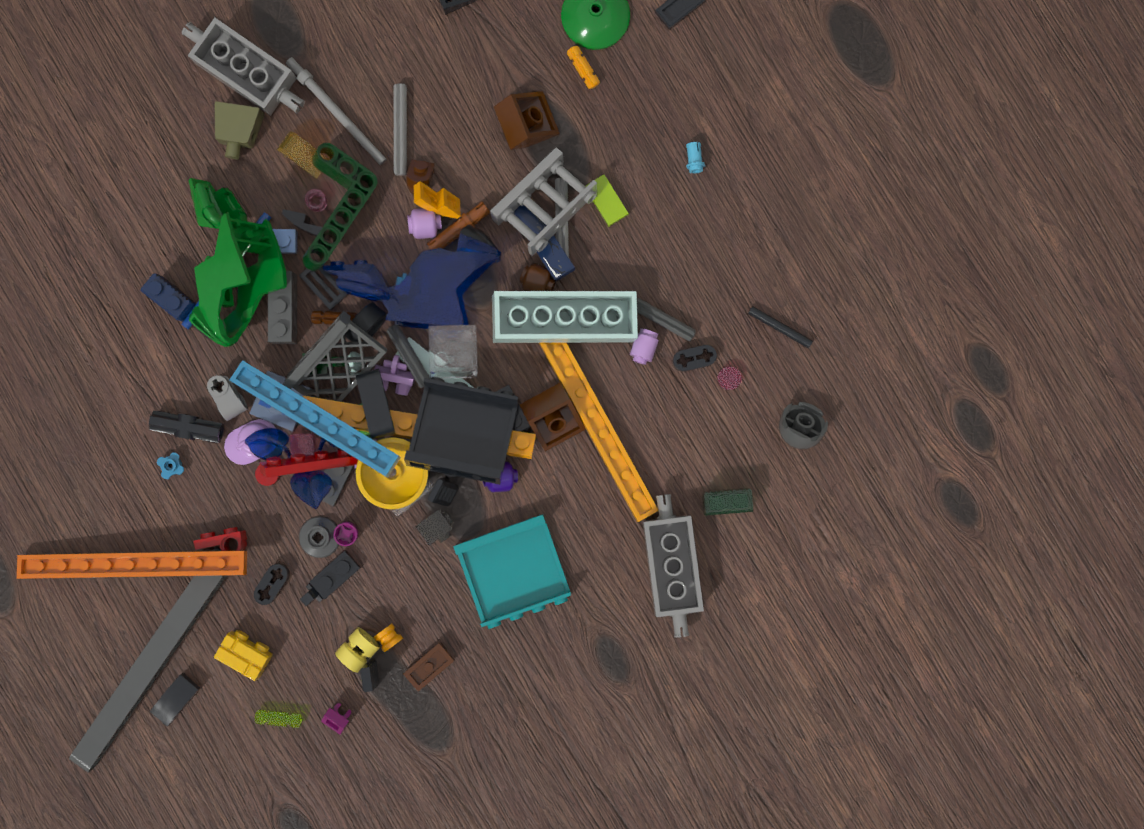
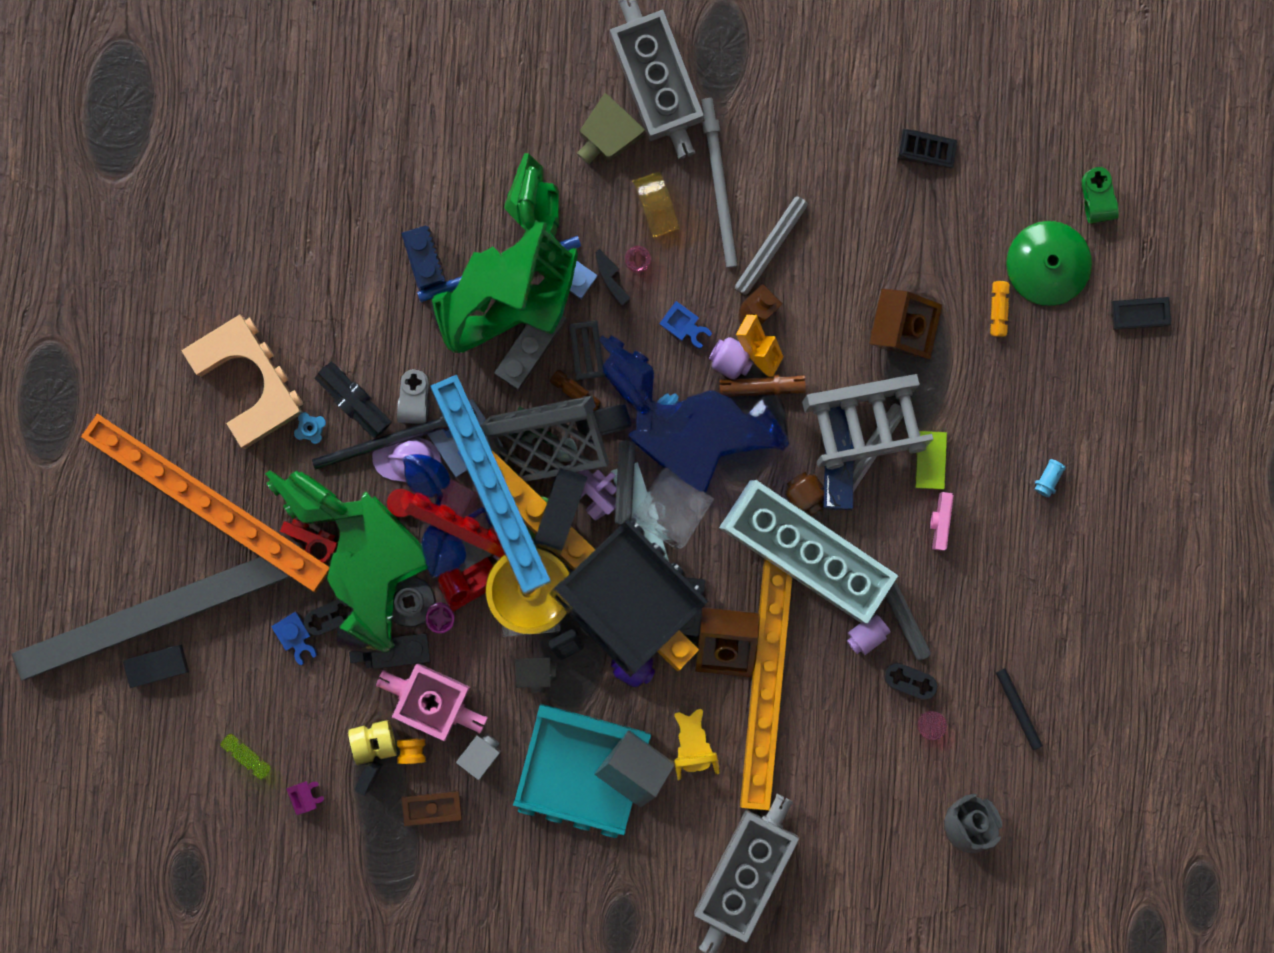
camera: 25 degrees right, 0 degrees up
(135, 464) = (276, 404): none -> light nougat arch
(225, 442) = (382, 442): none -> black bar
(243, 654) = (255, 669): yellow brick -> none
(255, 613) = (293, 634): none -> blue plate
(270, 531) = (369, 560): none -> green piece
(344, 208) = (661, 288): dark green beam -> none
(348, 501) = (465, 586): none -> red plate
(368, 607) = (413, 708): none -> bright pink brick
(374, 222) = (681, 322): none -> blue plate
(436, 608) = (479, 755): none -> light grey brick
(548, 545) = (635, 769): none -> dark grey slope
(581, 506) = (694, 751): none -> yellow hair
(641, 236) = (941, 521): none -> bright pink plate
(727, 501) = (844, 849): clear green brick -> none

